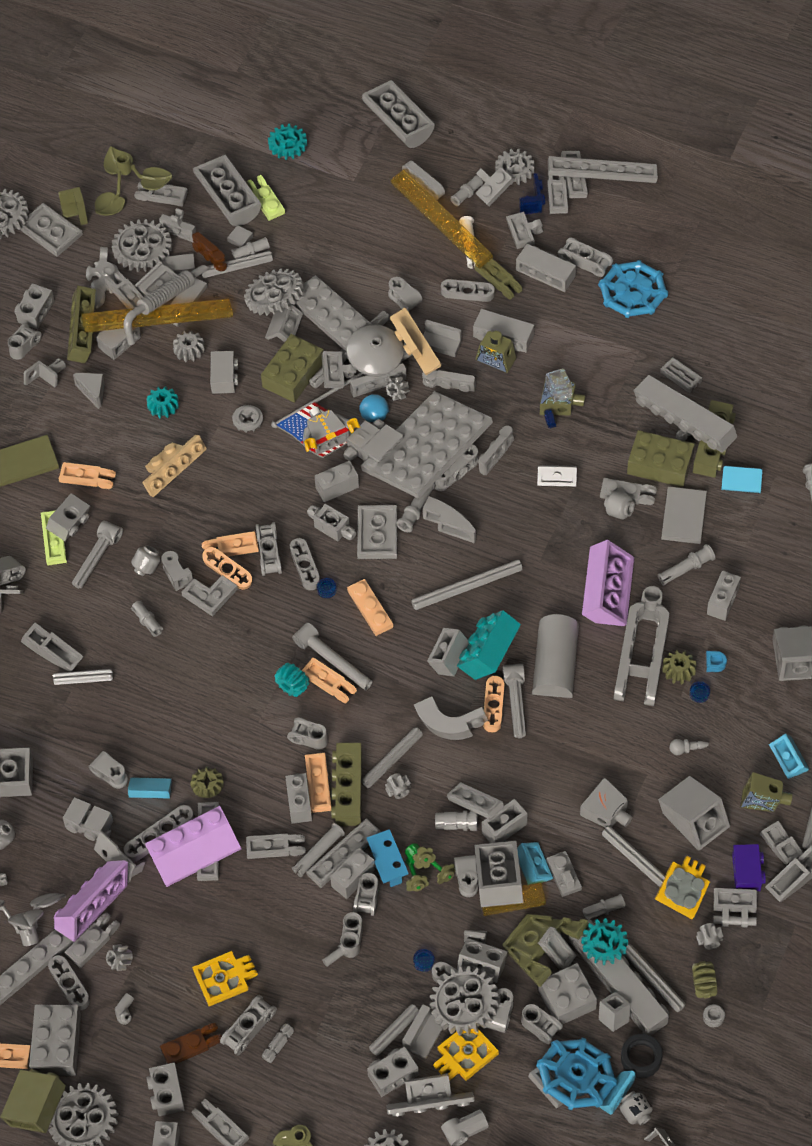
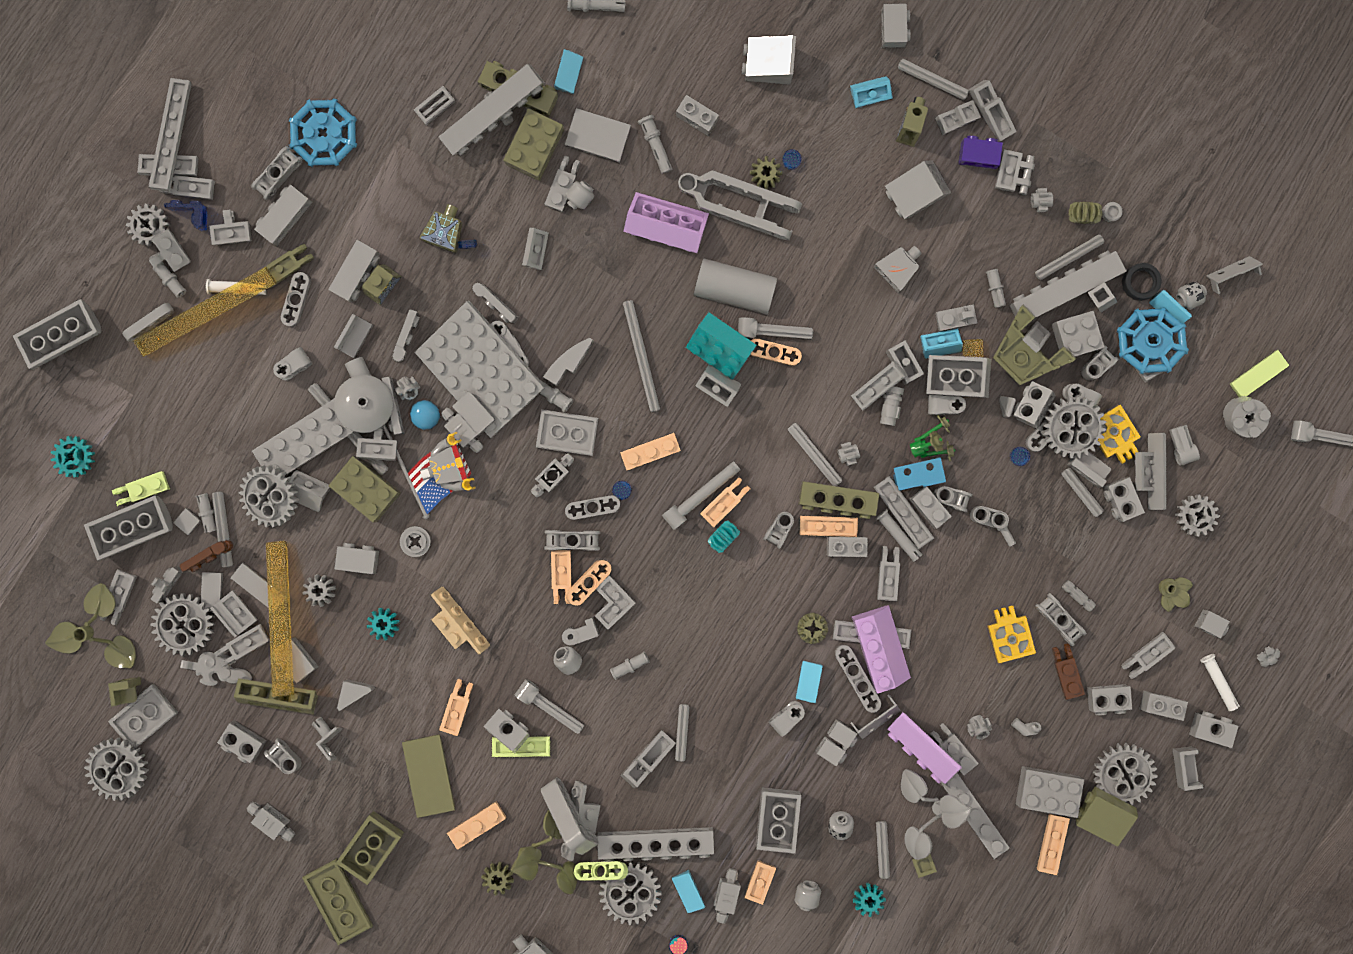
camera: 90 degrees left, 30 degrees up
(68, 973) = (1003, 763): light grey beam -> none
(160, 296) = (261, 611): light grey piece -> none
(336, 481) = (507, 463): light grey brick -> none
(415, 341) = (361, 363): tan bracket -> none
(449, 727) = (793, 403): light grey arch -> none
(558, 385) = (440, 227): clear brick -> none
(611, 935) = (1042, 285): teal gear -> none
(633, 855) = (950, 251): light grey axle -> none
(679, 746) = (847, 190): light grey bar -> none
(683, 887) = (989, 213): piece -> none
(715, 661) = (762, 138): dark azure tile -> none

